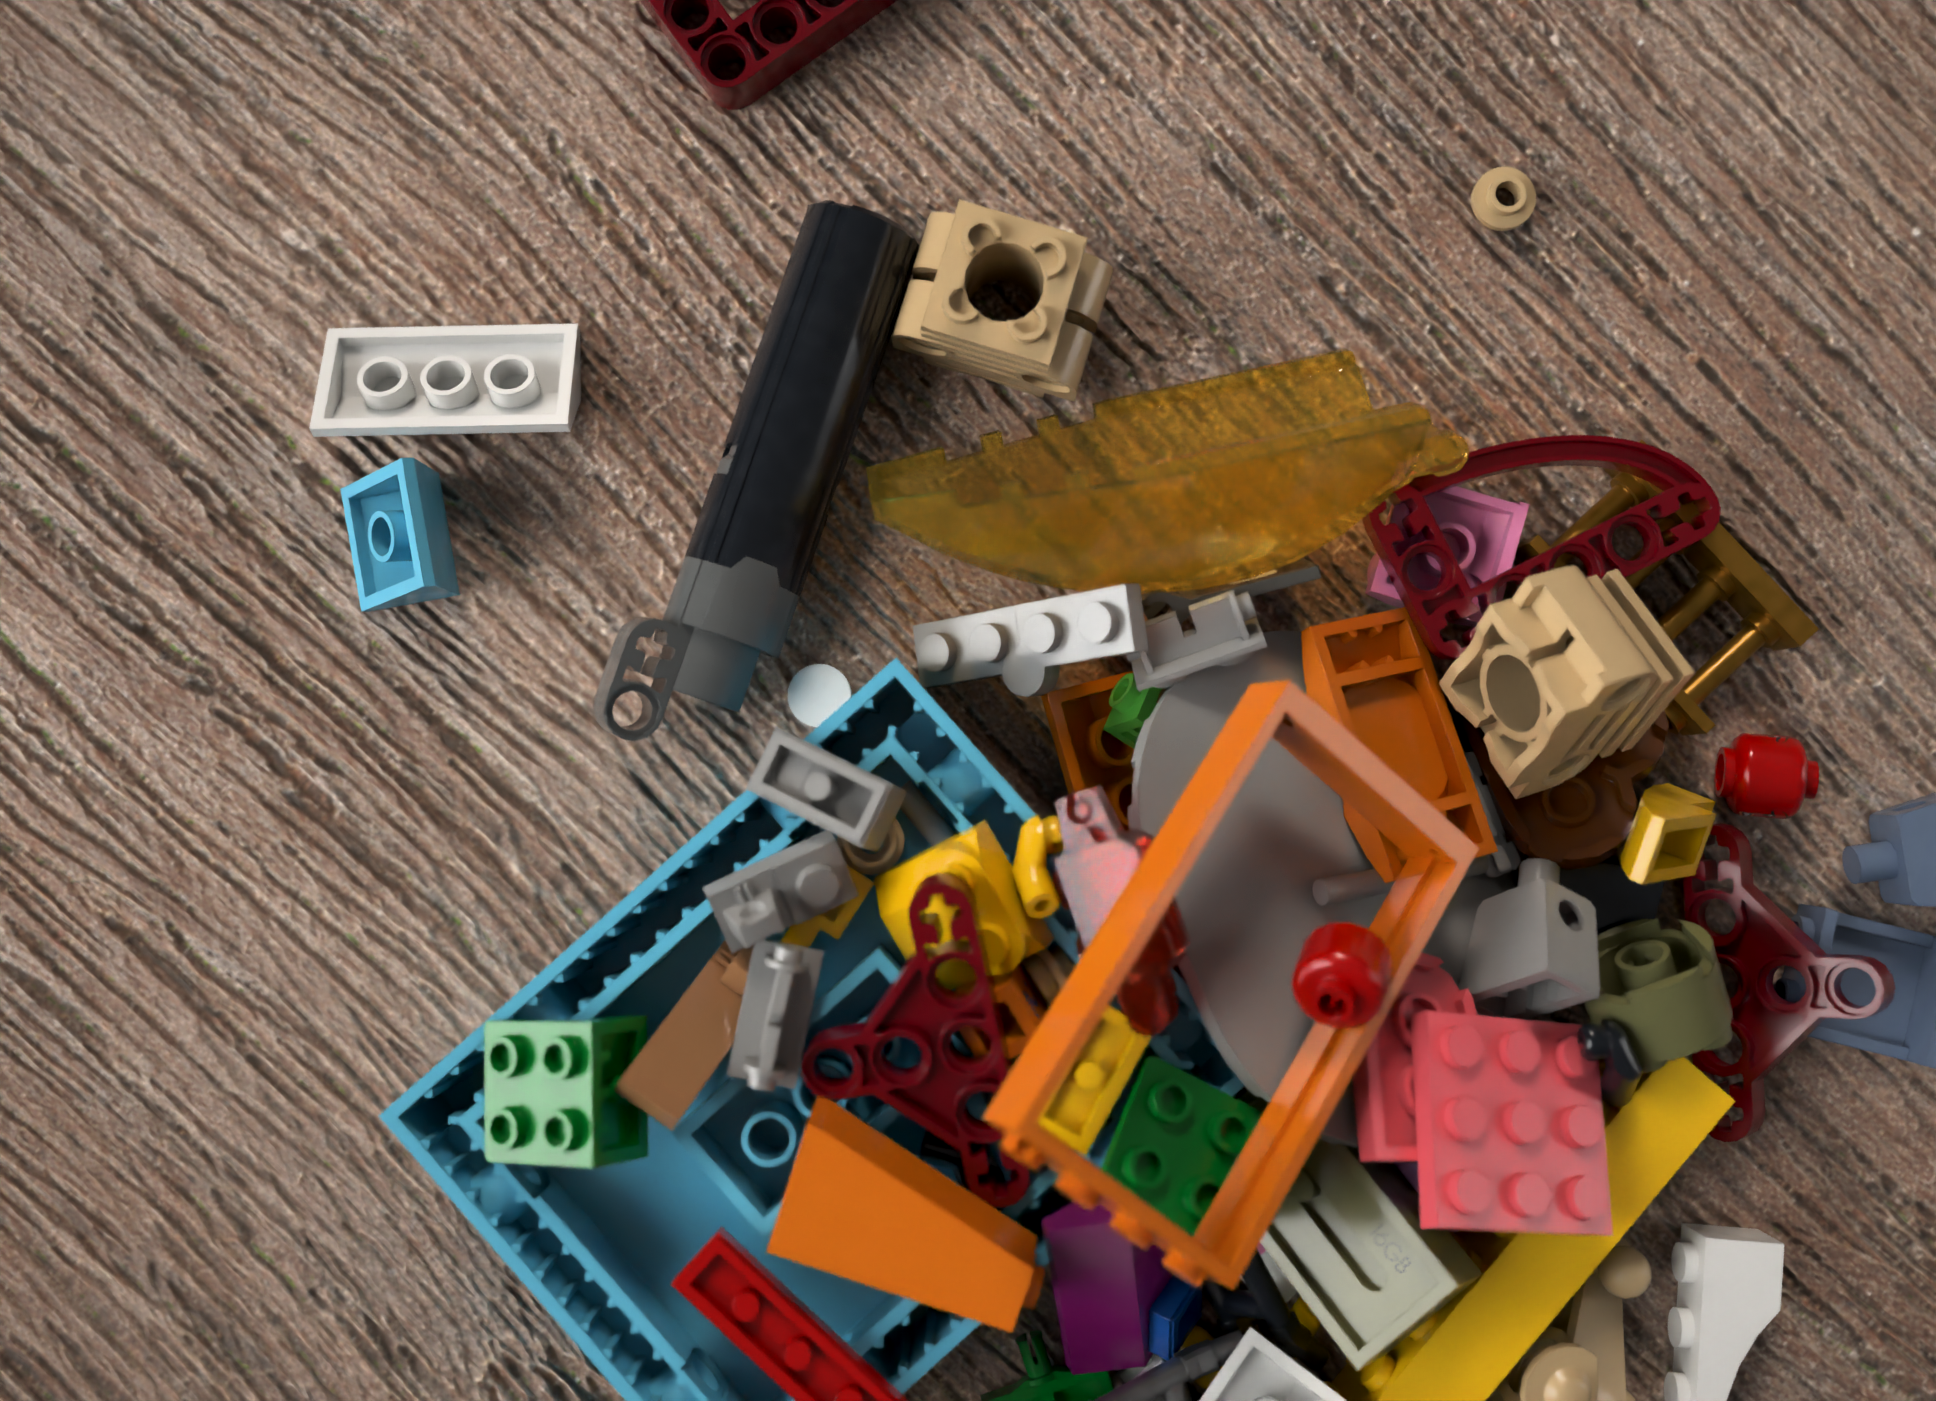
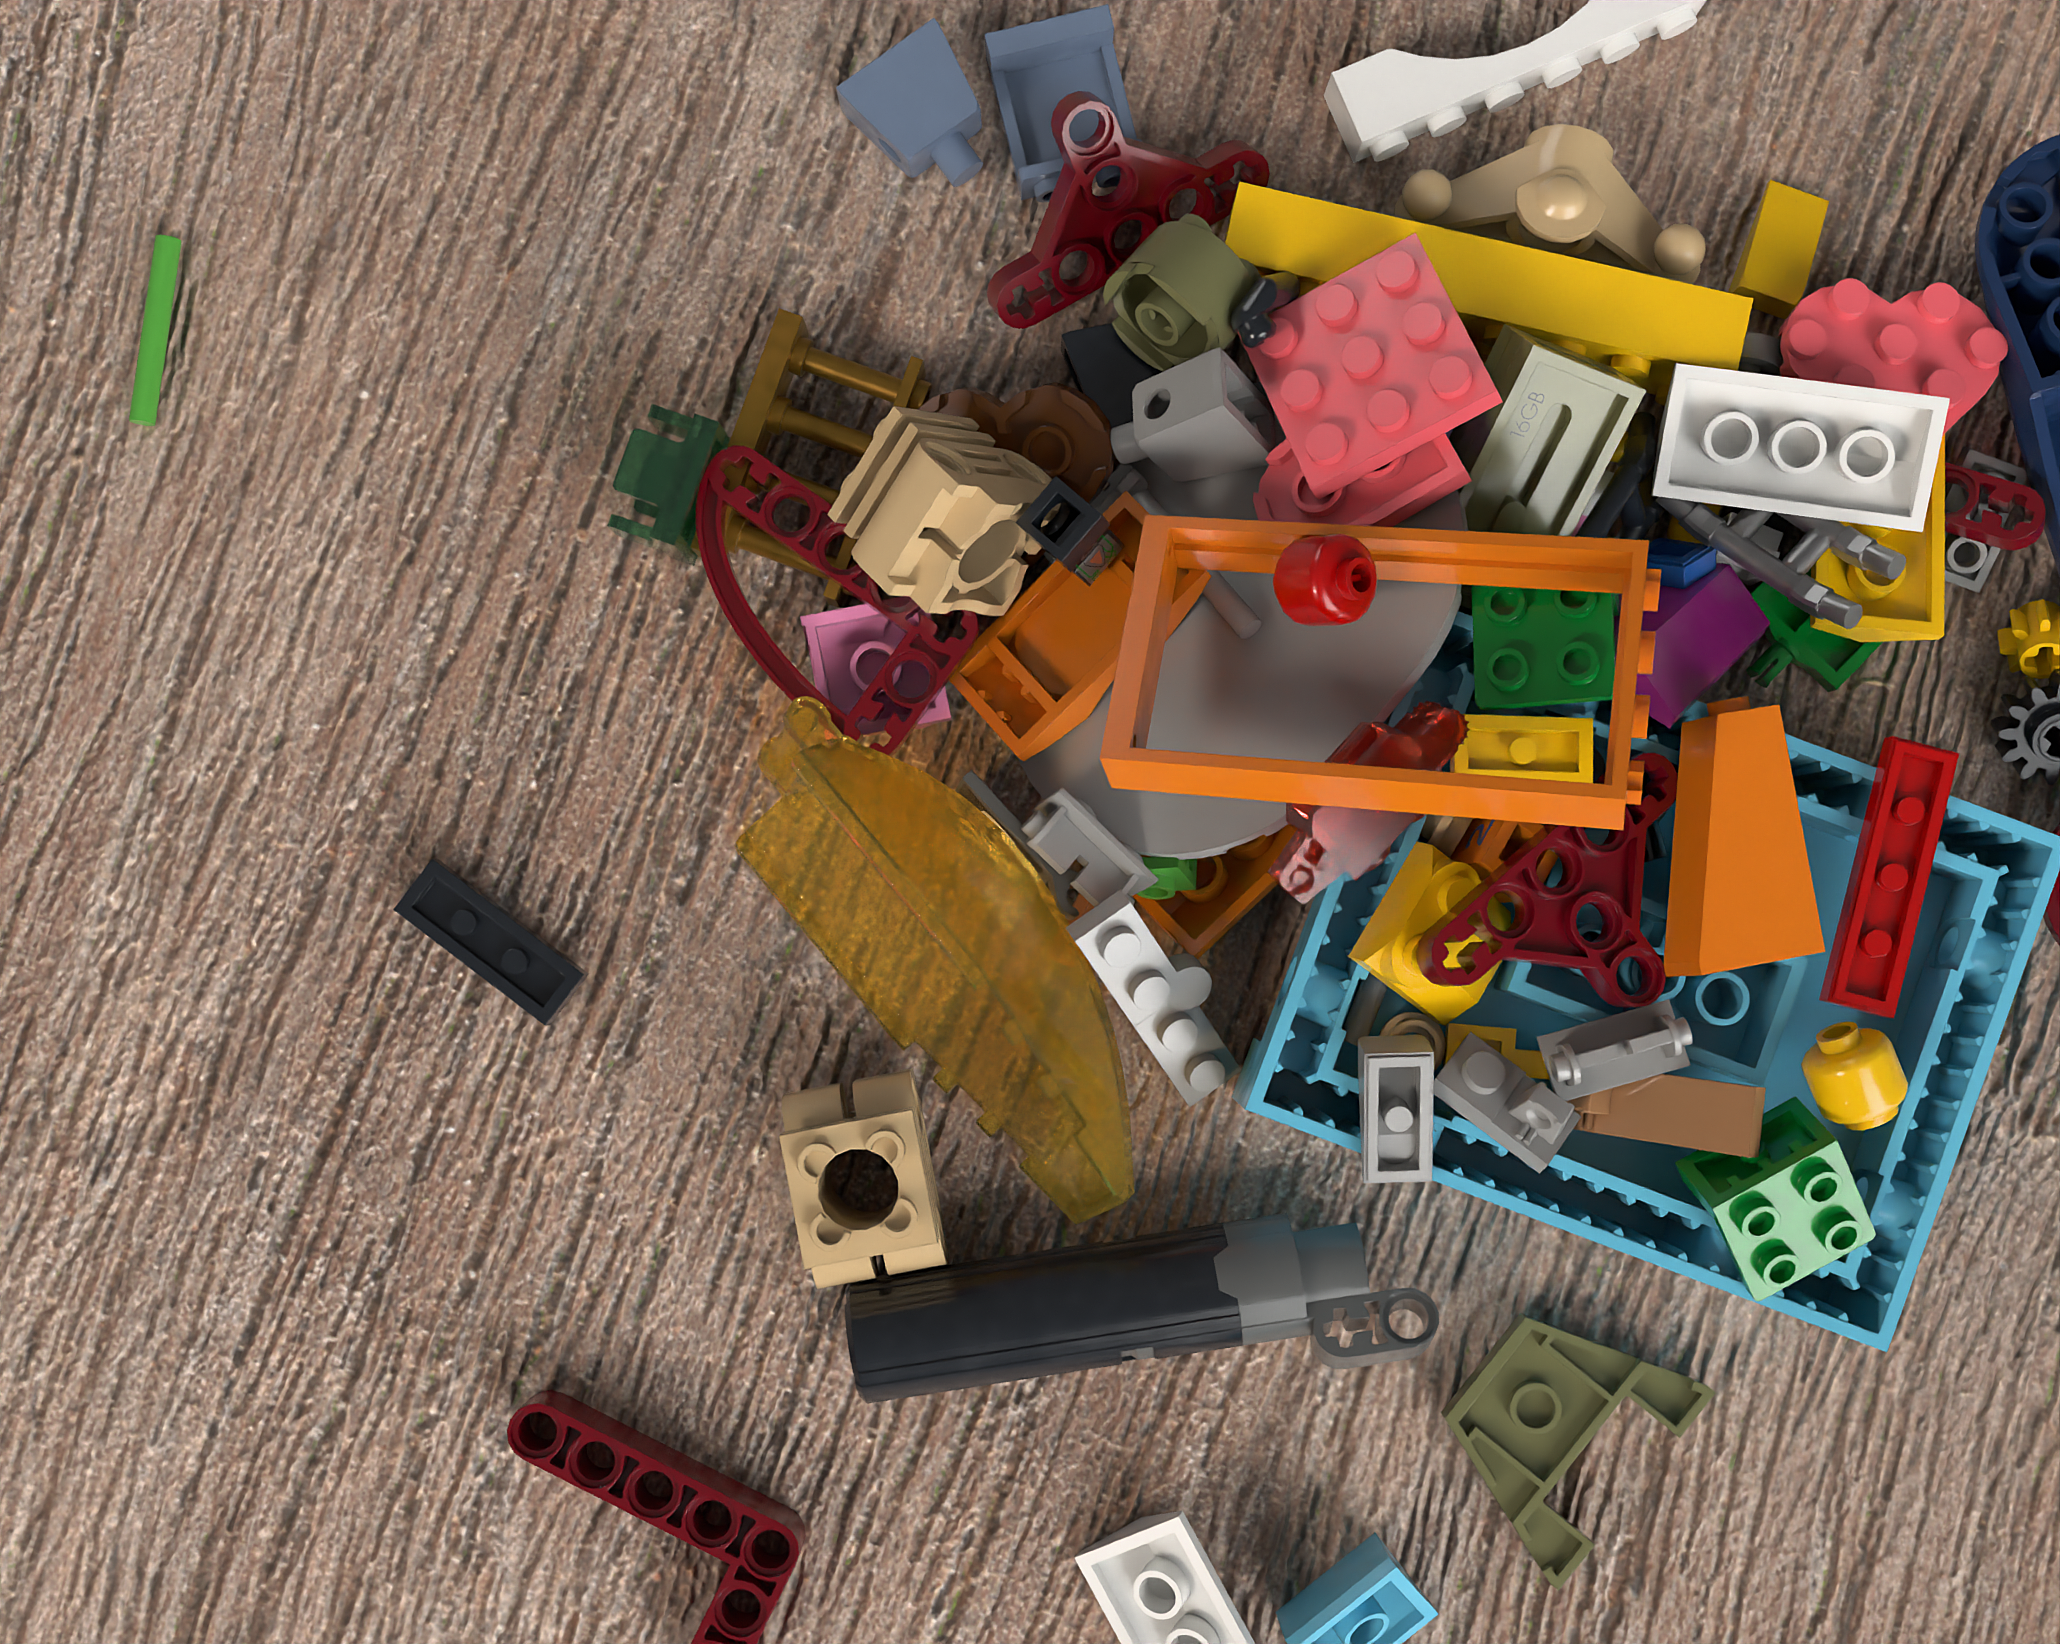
camera: 115 degrees left, 0 degrees up
(489, 789) = (1537, 1409): none -> olive wing
(638, 1219) = (1854, 1076): none -> yellow head
(817, 693) = (1295, 1158): white tile -> none
(1030, 865) = (1369, 895): yellow arm -> none
(1375, 94) = (491, 941): none -> black plate
(1487, 778) = (1075, 536): none -> black leg
(1491, 211) = (546, 781): tan plate -> none
(1667, 834) = (1034, 352): yellow slope -> none
(1718, 448) = (666, 480): none -> clear green panel
(1765, 775) = (928, 287): red head -> none

